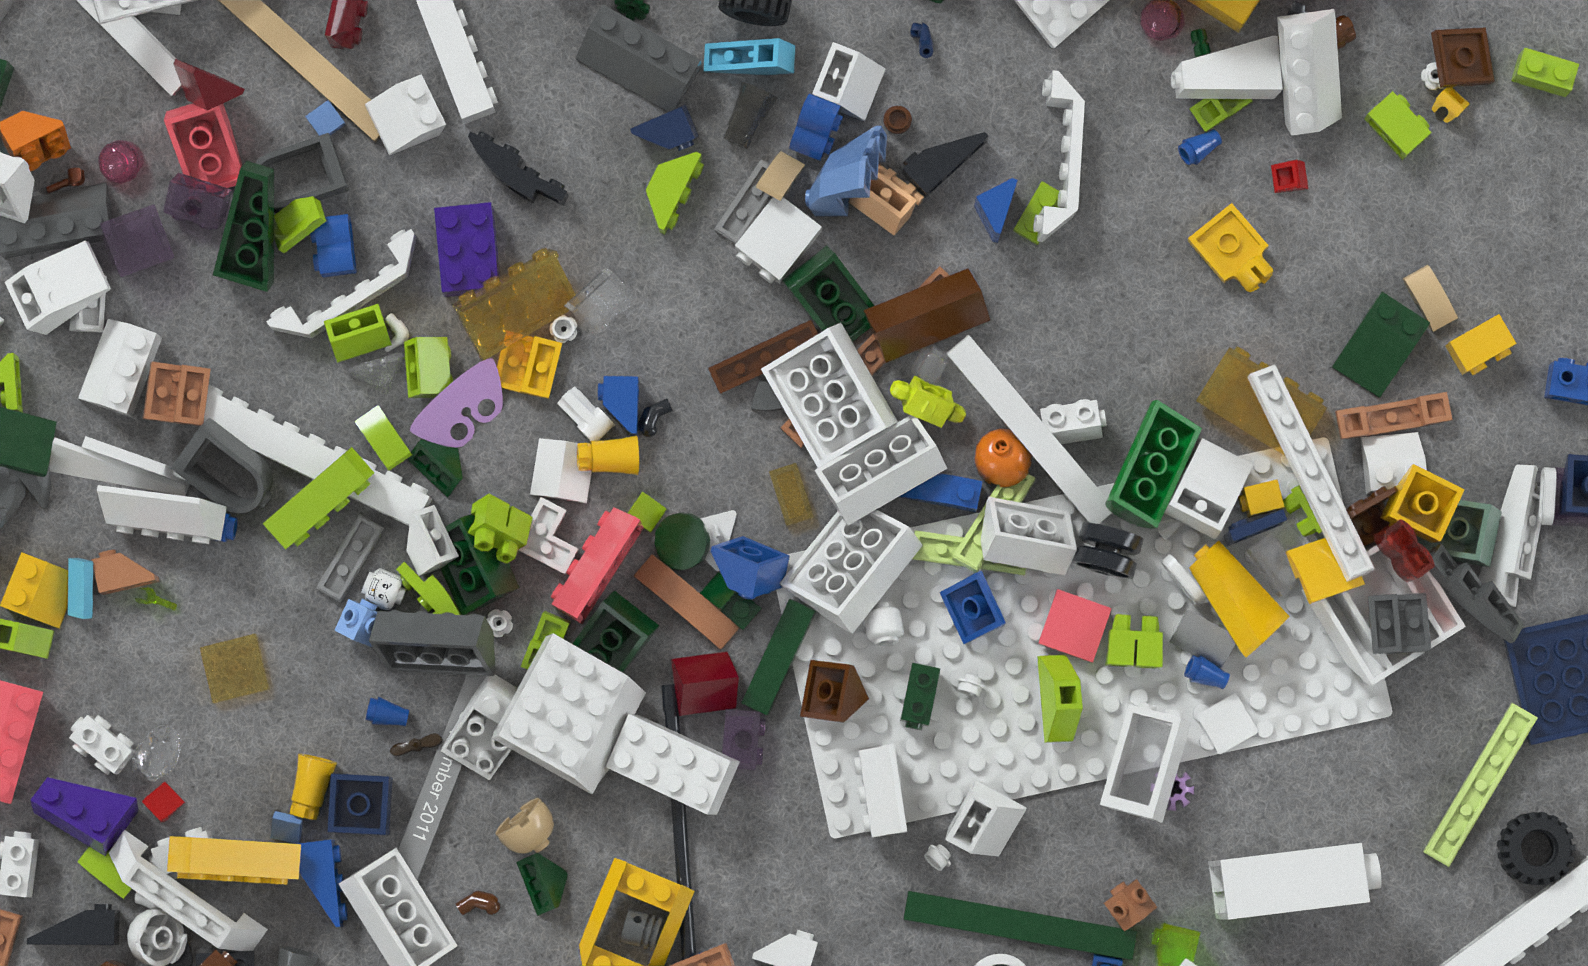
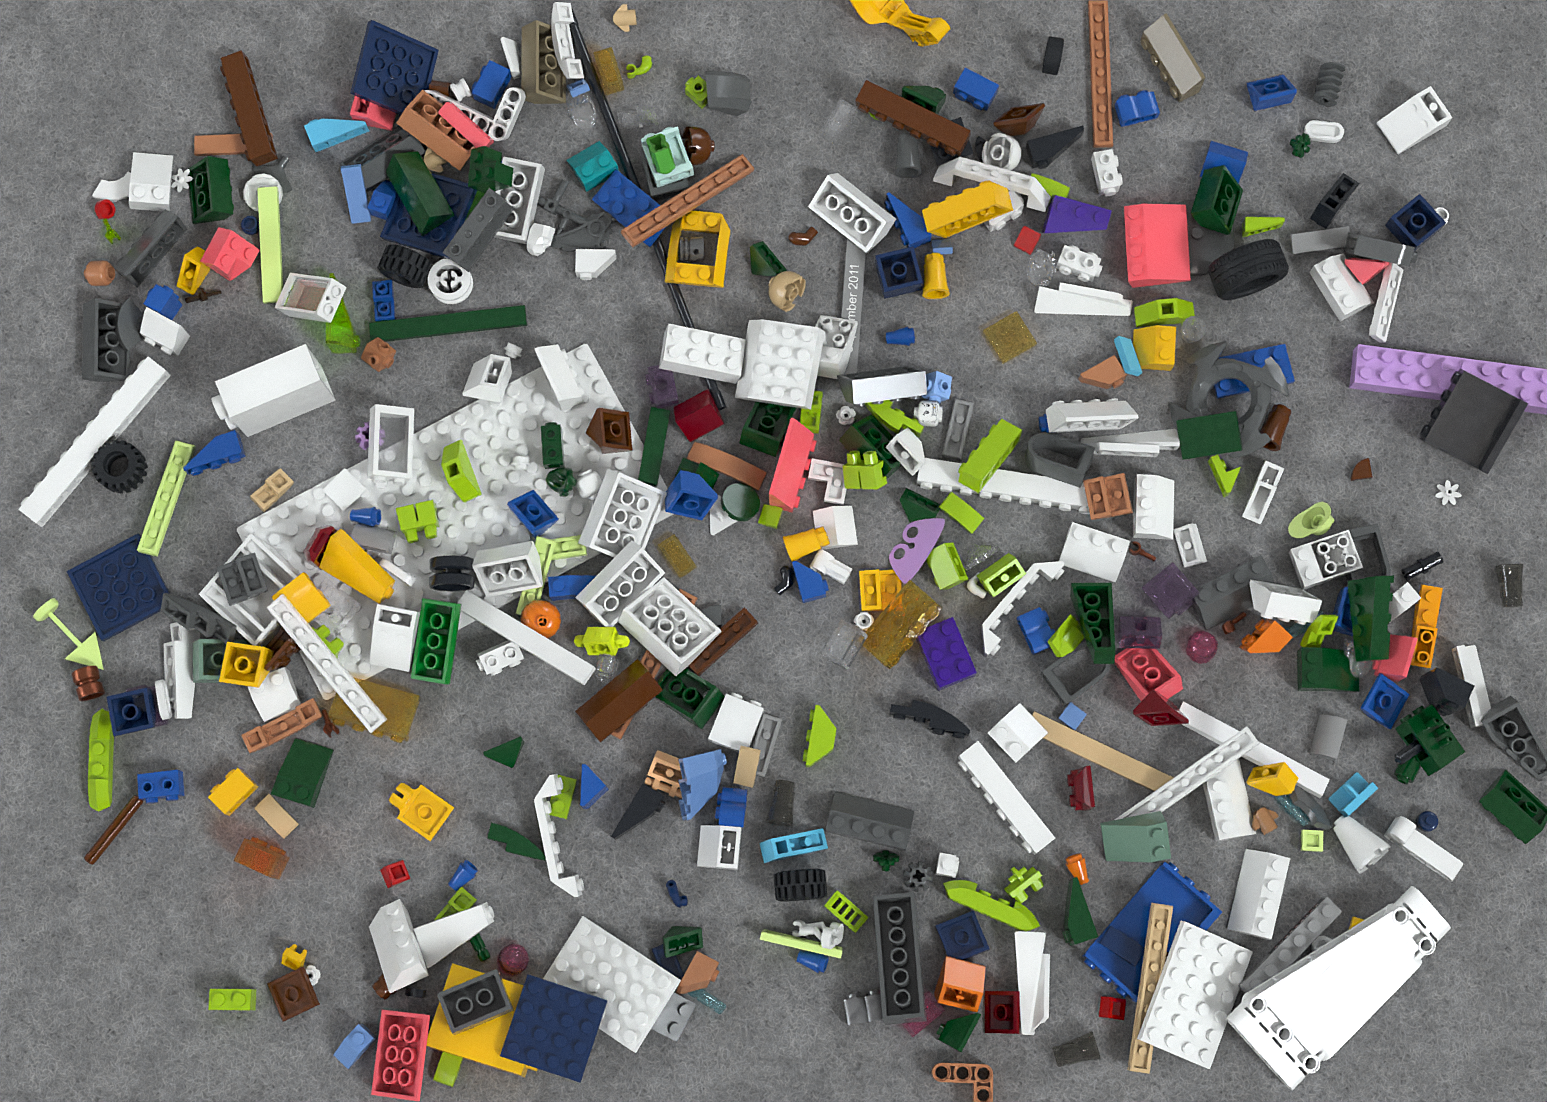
camera: 165 degrees right, 5 degrees down
(57, 287) = (1212, 544): white slope -> none
(118, 689) = (1081, 300): none -> white wedge
(153, 598) = (1079, 365): clear neon green hand -> none
(155, 311) = (1141, 552): none -> copper hand
(221, 329) = (1094, 552): none -> white slope
(417, 745) = (875, 323): dark brown piece -> none
(669, 129) = (834, 777): dark blue slope -> none
(897, 119) = (678, 833): reddish brown plate -> none
(920, 642) = (561, 481): none -> dark green hat
(1074, 625) = (462, 522): coral tile -> none
(1099, 291) = (506, 753): none -> dark green slope
(1116, 168) = (515, 842): none -> dark green slope
(1244, 529) = (354, 619): dark blue plate -> none
(1261, 498) = (357, 641): yellow brick -> none
(1280, 647) = (317, 545): none -> dark red slope
(1329, 398) = (329, 727): none -> copper hand
(1329, 754) = (272, 490): none -> tan slope
(1388, 831) = (218, 451): none -> blue slope
(1398, 124) = (327, 931): lime brick -> none
(1407, 556) = (250, 627): clear red brick -> none
(1462, 242) = (262, 859): none -> clear orange brick

